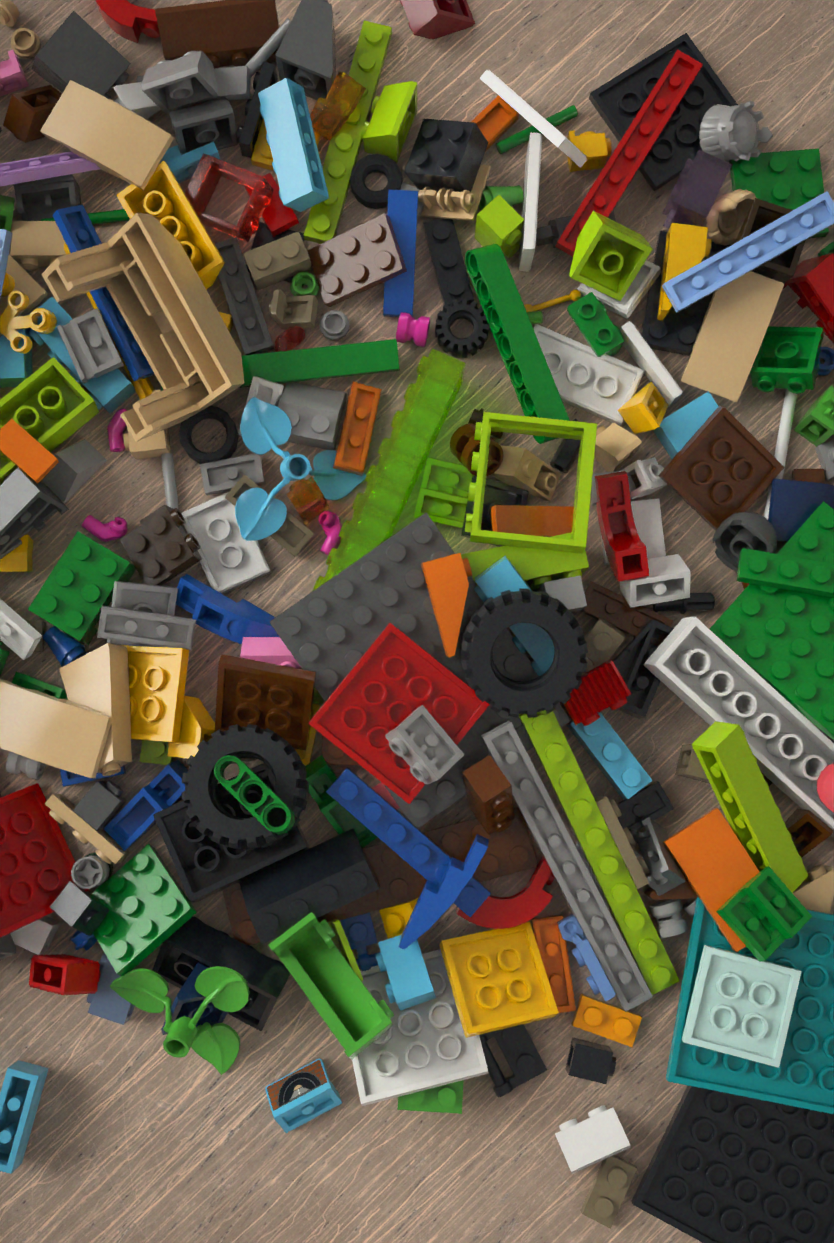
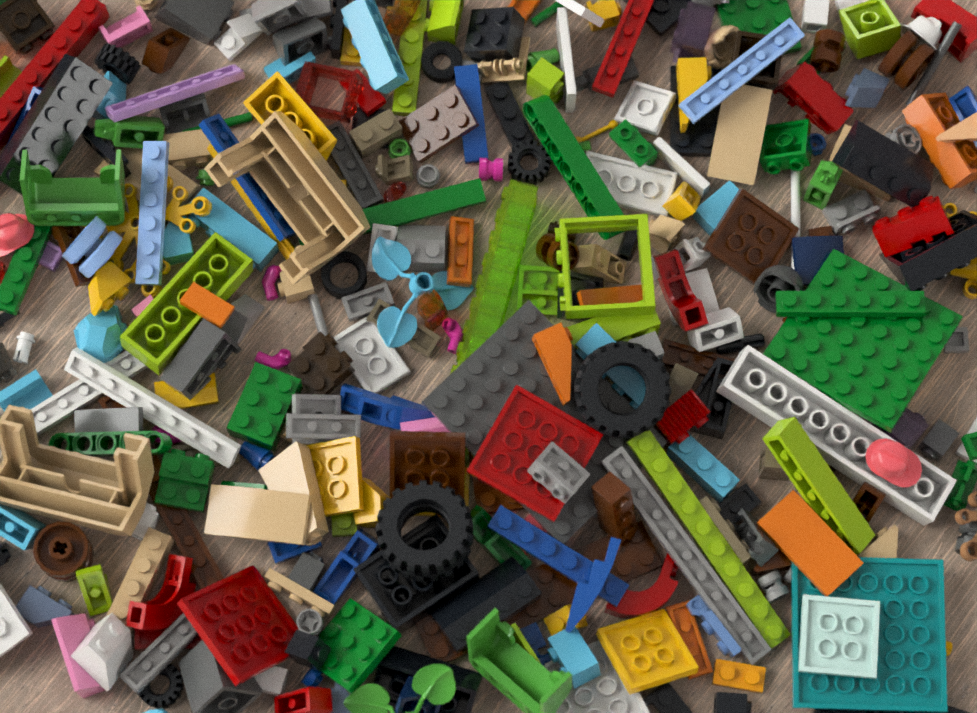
camera: 10 degrees left, 10 degrees down
(18, 764) = (245, 549): light grey wheel -> none
(90, 345) = (242, 219): light grey plate -> none
(107, 134) = (229, 58): tan slope -> none
(240, 786) = (430, 516): green beam -> none
(608, 256) = (633, 90): lime slope -> none
(764, 914) = (843, 562): green slope -> none

